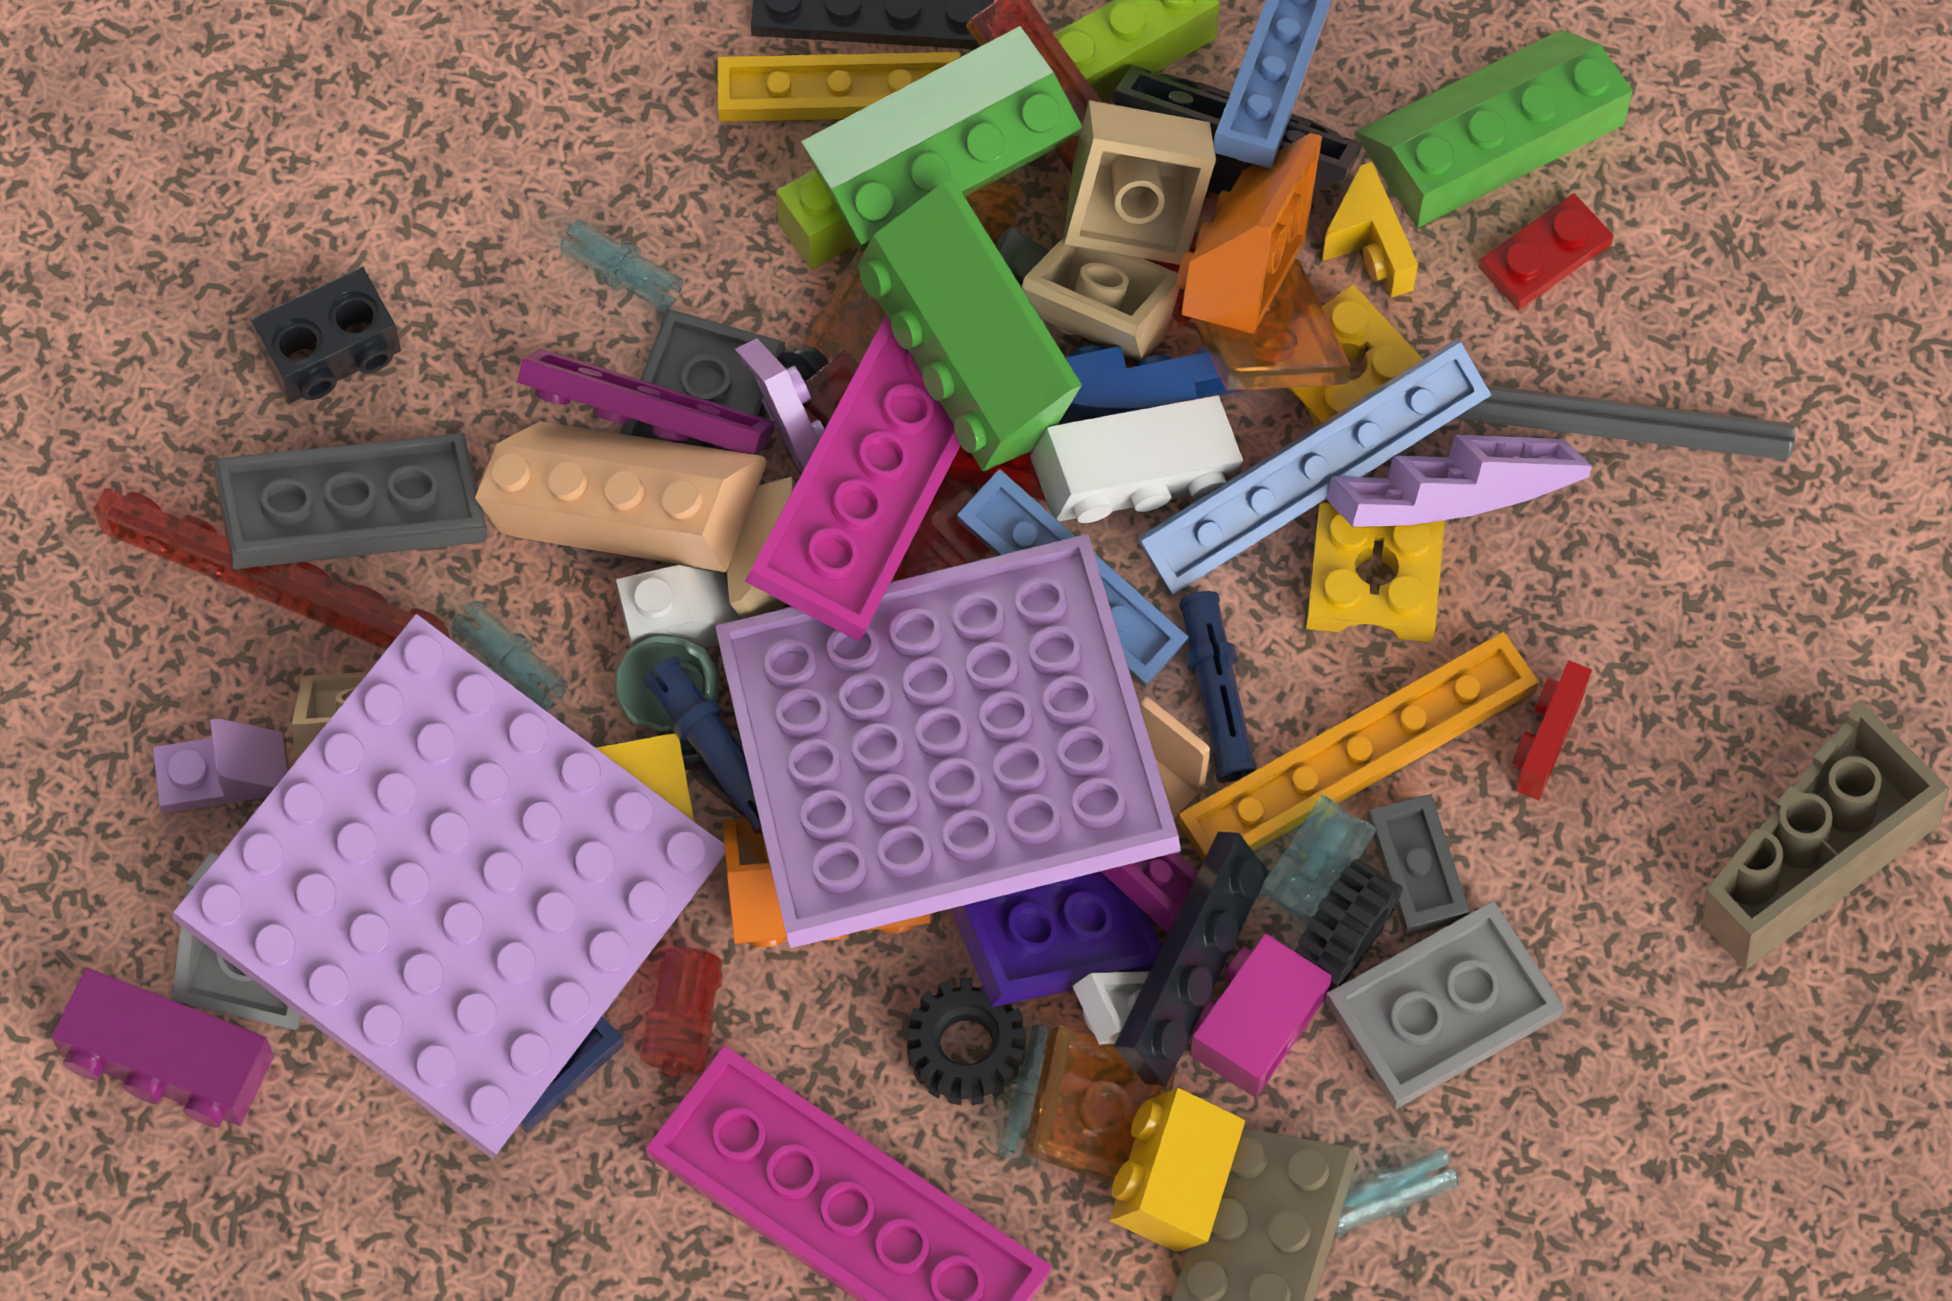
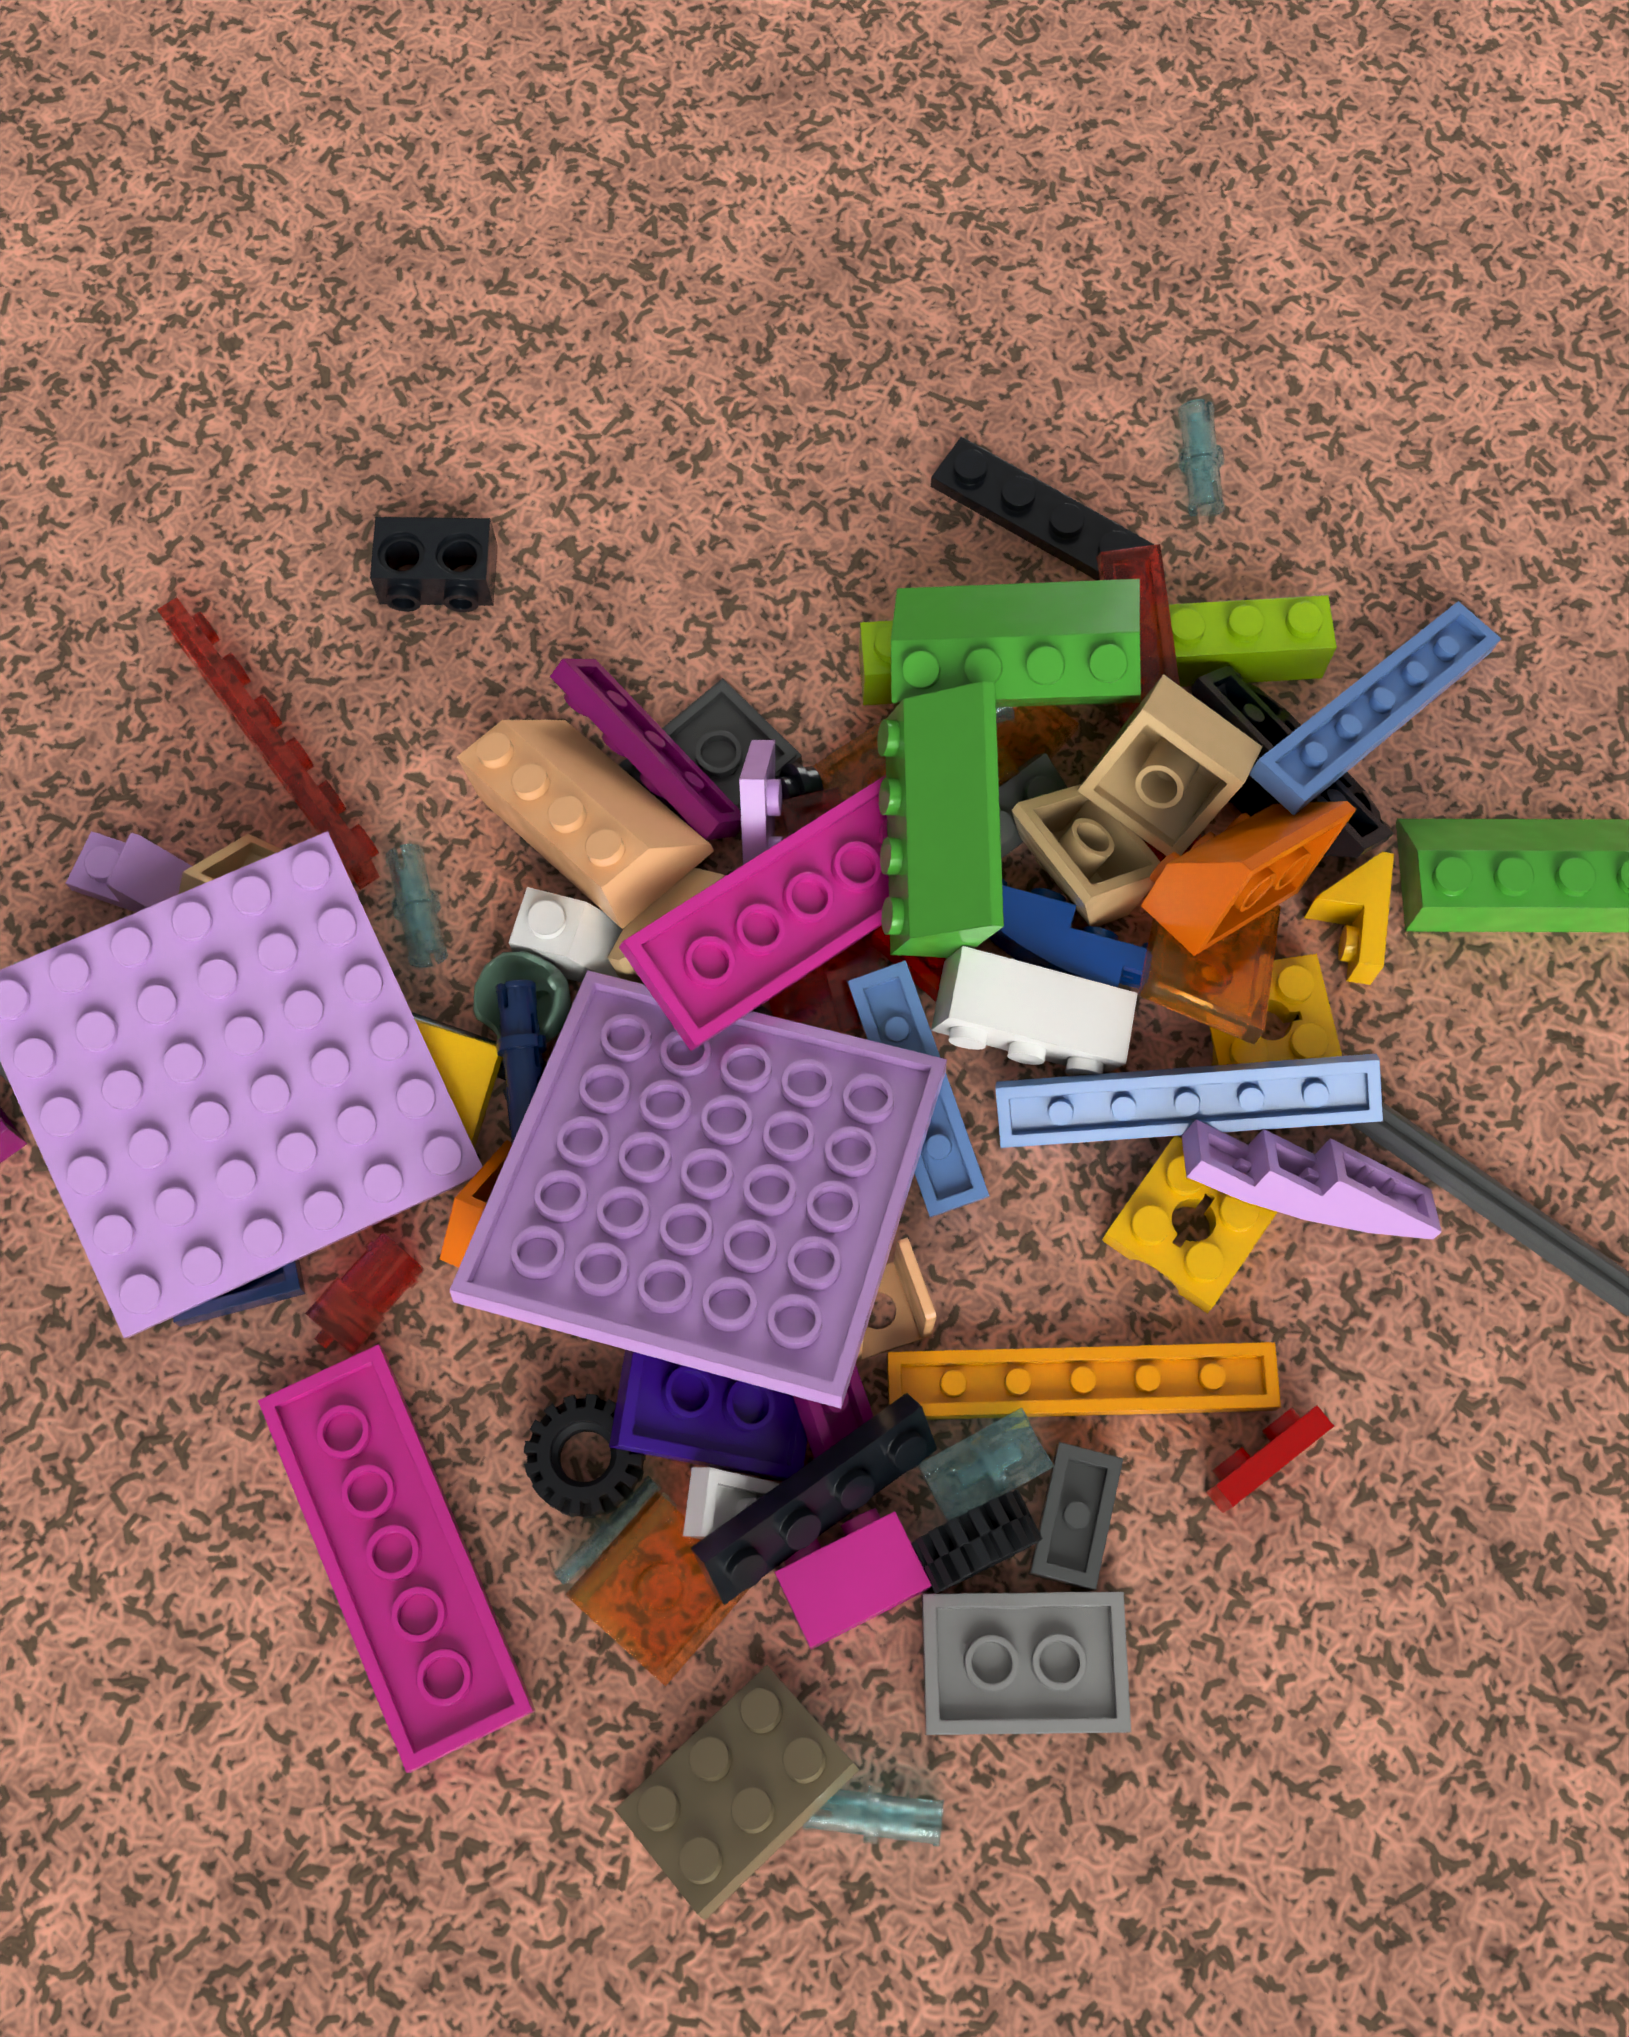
camera: 30 degrees right, 5 degrees up
(348, 500) = (361, 706): dark grey tile -> none
(621, 265) = (706, 623): clear light blue pin -> none
(815, 84) = (950, 548): yellow plate -> none
(1176, 1169) = (690, 1686): yellow brick -> none
(1213, 663) = (1014, 1184): dark blue pin -> none
(1546, 251) = (1509, 1011): red plate -> none
(1828, 834) = (1469, 1705): dark tan wedge -> none

